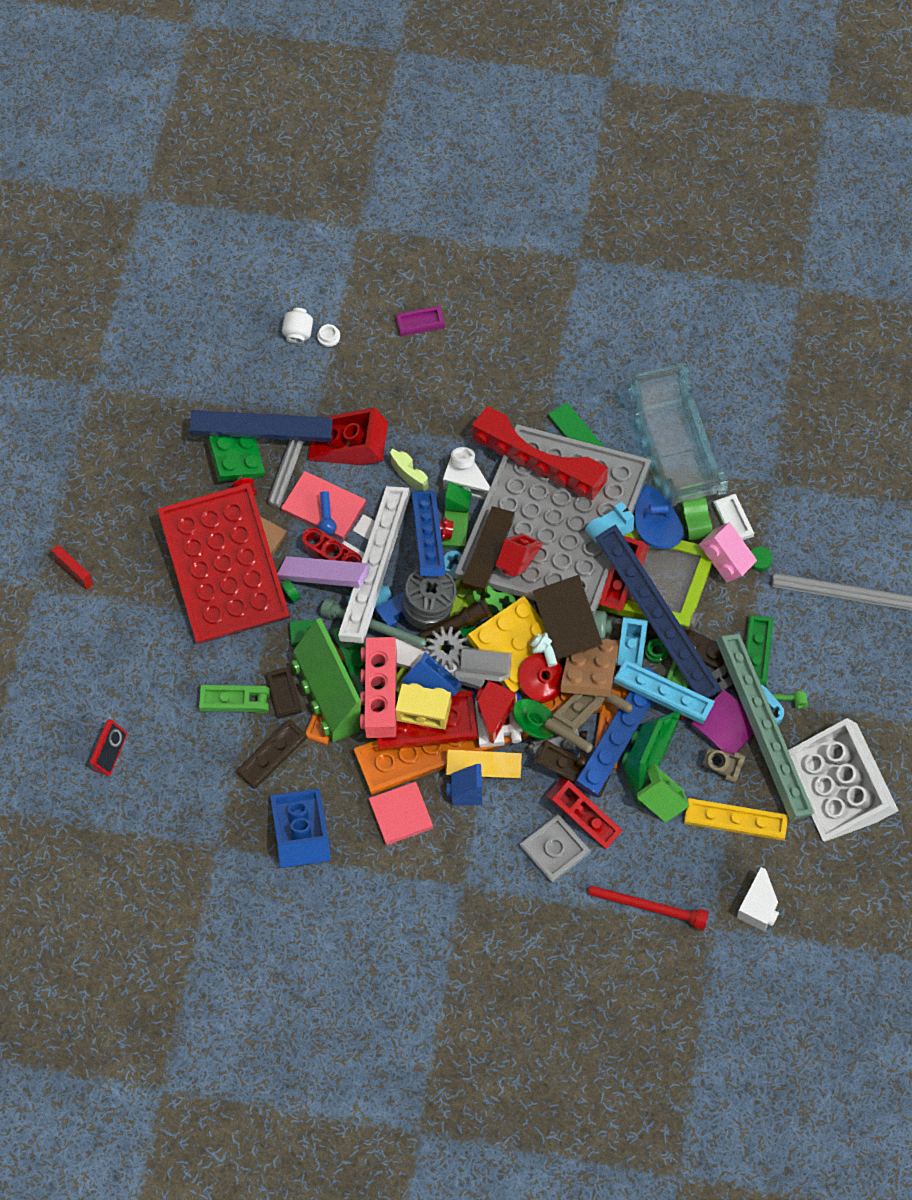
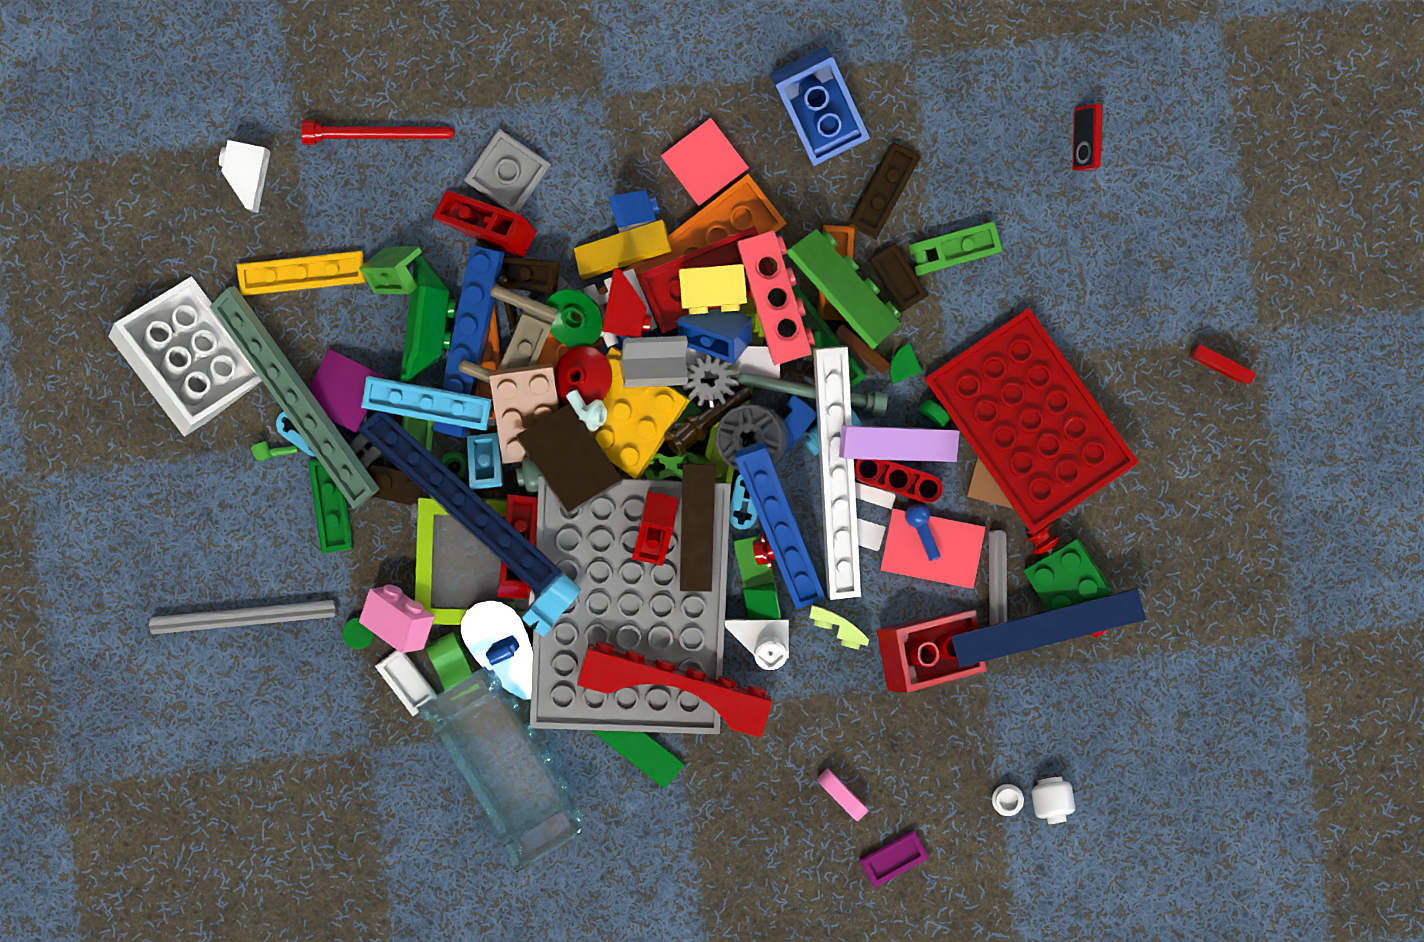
camera: 160 degrees right, 25 degrees up
(442, 366) = (842, 794): none -> bright pink beam
(729, 766) = (332, 337): dark tan plate -> none

